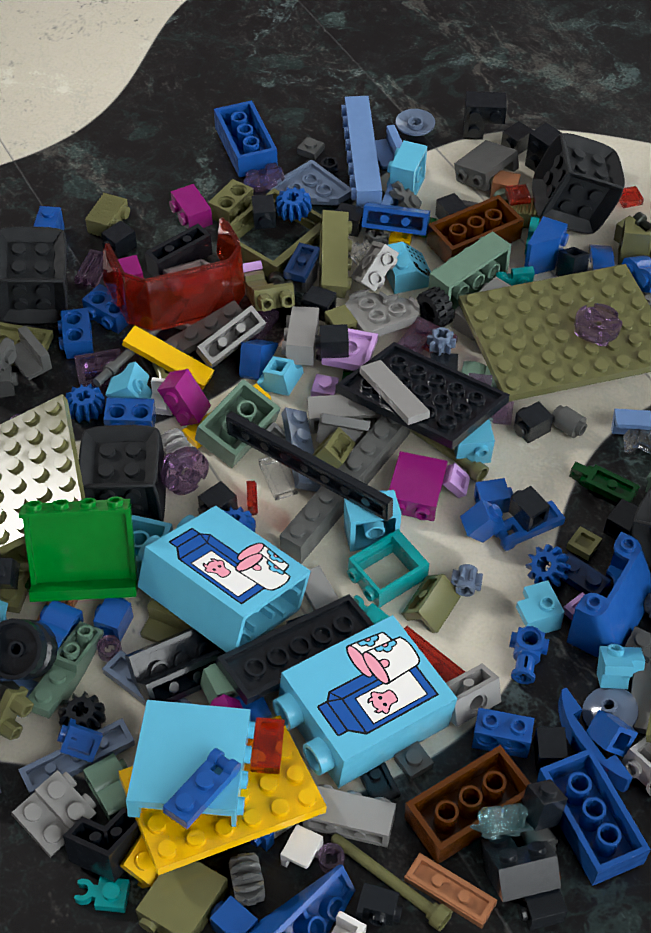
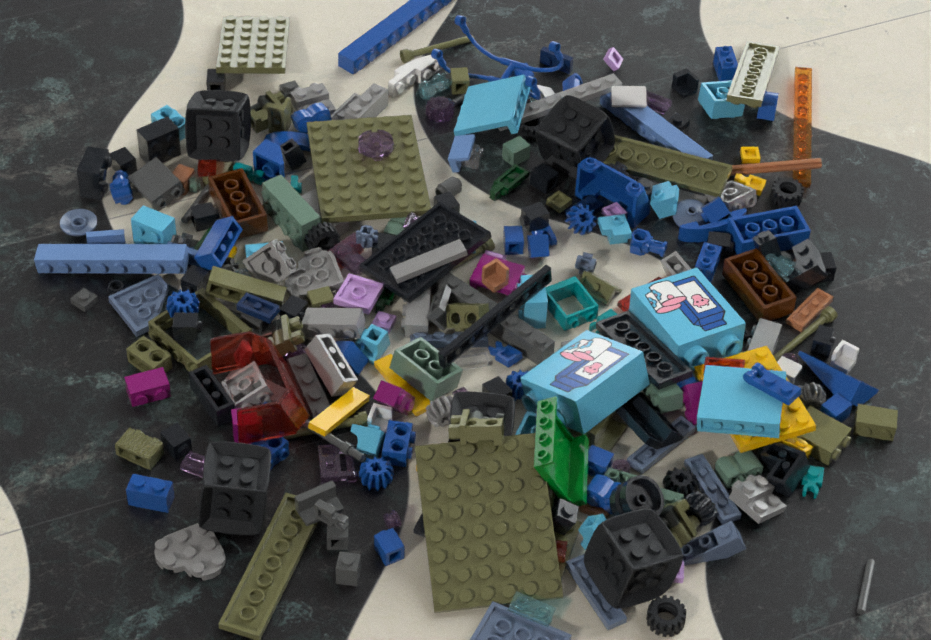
camera: 85 degrees left, 5 degrees down
(30, 735) = (701, 507): none -> black gear
(76, 332) = (290, 476): blue brick -> none
(79, 741) = (708, 478): blue bracket -> none
(80, 436) = (475, 427): none -> olive hips
(244, 137) = (66, 337): blue brick -> none
(252, 501) = (493, 371): clear red tile -> none
(264, 178) = (119, 324): clear purple plate -> none
(285, 508) = (505, 355): none -> blue plate
(333, 341) = (360, 294): black brick -> none
(400, 470) = (495, 275): none -> nougat panel
(473, 138) = (121, 188): none -> blue connector

